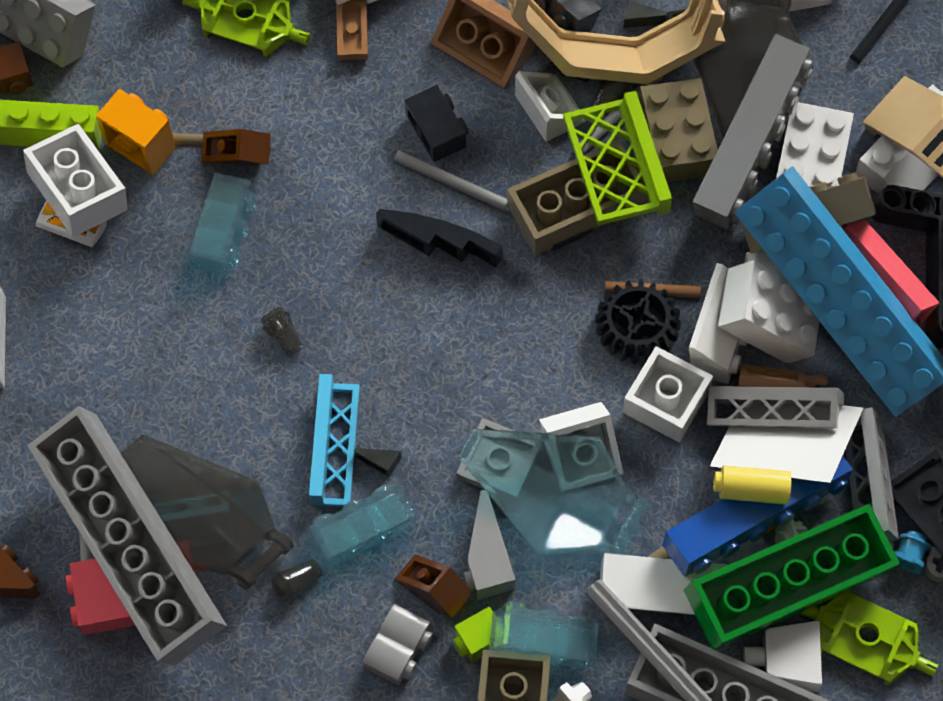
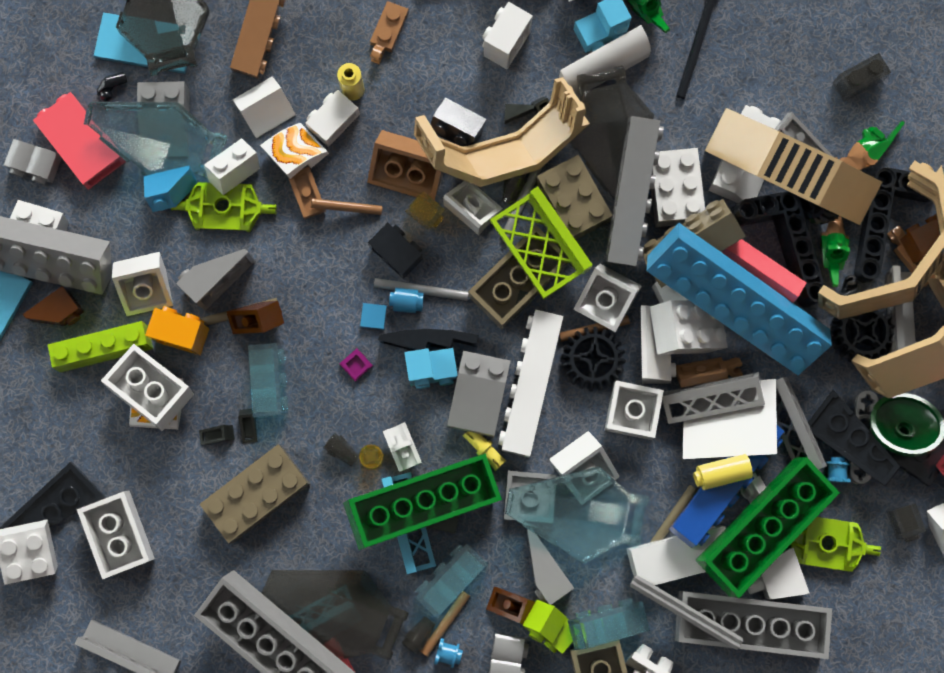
camera: 20 degrees left, 15 degrees up
(111, 66) = (142, 283): none -> white slope
(137, 268) = (217, 434): none -> pearl dark grey piece
(157, 346) = (254, 494): none -> dark tan brick
(178, 271) = (247, 426): none -> pearl dark grey piece
(205, 84) = (212, 278): none -> light grey slope
(315, 343) = (368, 454): none -> clear yellow wheel
(325, 612) = (448, 654): none -> dark azure brick
(335, 578) = (445, 623): none -> medium nougat bar
(338, 241) = (356, 365): none -> magenta tile
(359, 349) = (402, 447): none -> white hips
(359, 409) = (421, 501): none -> green brick
(380, 192) = (373, 316): none -> dark azure tile
(394, 58) = (346, 206): none -> medium nougat bar
(426, 267) = (431, 367): none -> medium azure brick
(428, 185) = (406, 300): none -> dark azure brick
(462, 385) = (484, 446): none -> light yellow pin
(462, 603) = (544, 622): none -> lime brick
(478, 314) = (478, 393): none -> light grey slope
(489, 90) = (426, 211): none -> clear yellow brick
(548, 327) = (532, 383): none -> white brick
(680, 254) = (607, 297): none -> white slope

